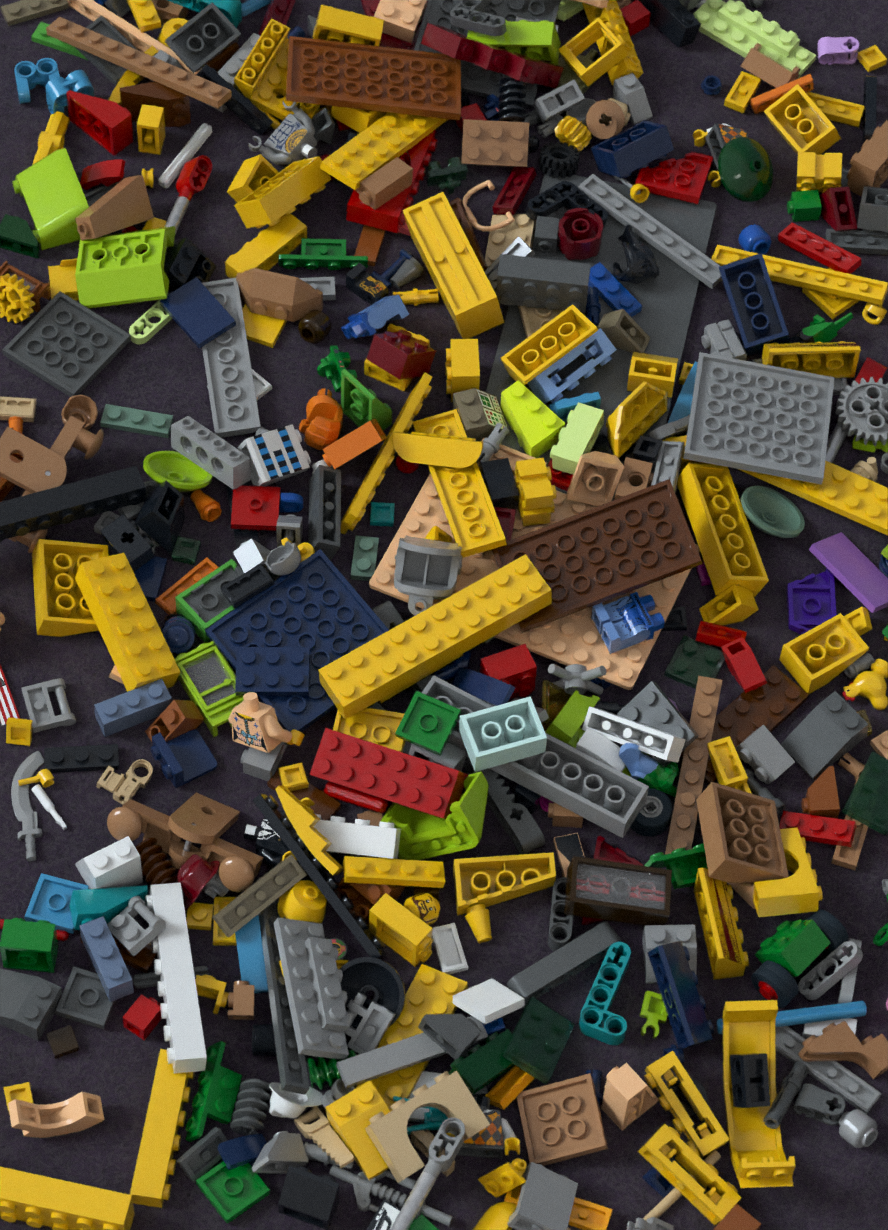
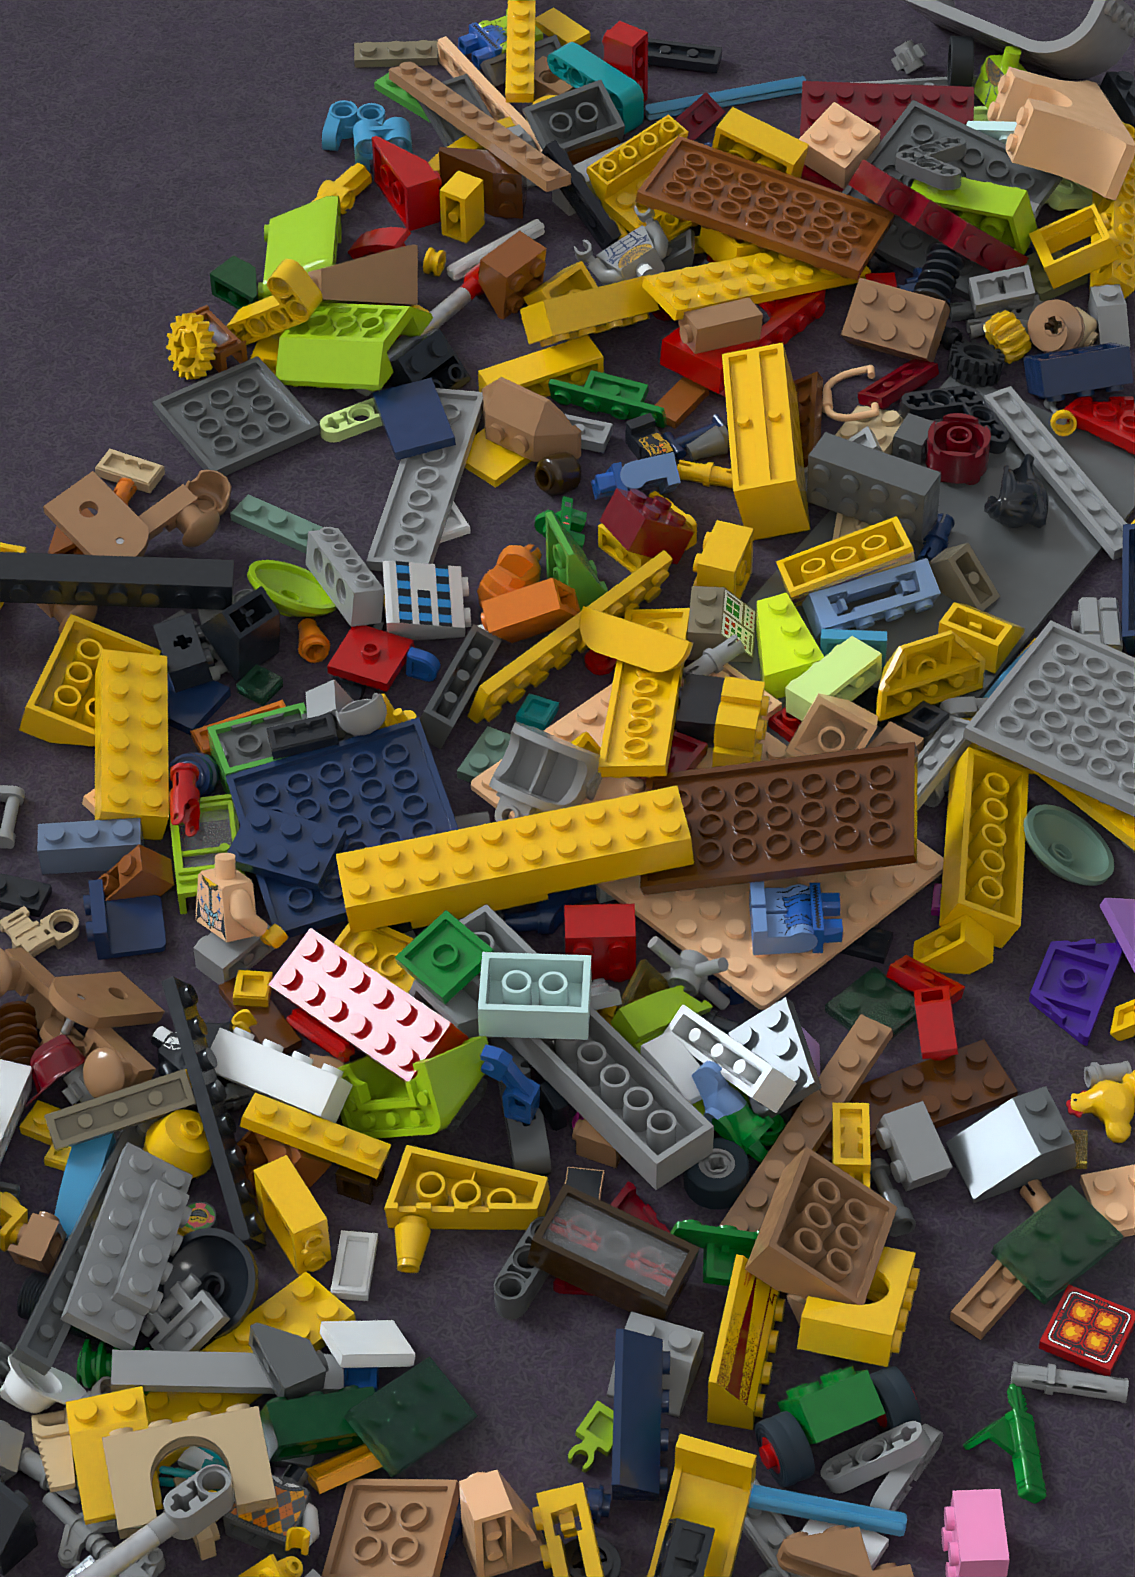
camera: 25 degrees right, 10 degrees down
(76, 248) = (291, 303): none -> yellow beam
(187, 655) = (185, 797): none -> red piece
(214, 176) = (512, 273): none -> dark orange slope
(290, 527) = (401, 690): light grey slope -> none
(303, 822) = (219, 1035): yellow slope -> none
(424, 907) = (339, 1200): yellow head -> none
(446, 177) = (818, 347): clear green hips -> none
(483, 686) = (549, 937): dark blue slope -> none
(500, 789) = (519, 1088): none -> blue piece
(564, 962) = (504, 1329): dark grey beam -> none
(606, 989) = (573, 1354): teal beam -> none
(613, 291) = (974, 527): blue plate -> none
(820, 828) = (952, 1266): red plate -> none
(822, 653) = (1057, 1040): yellow slope -> none
(822, 796) = (973, 1227): dark orange slope -> none

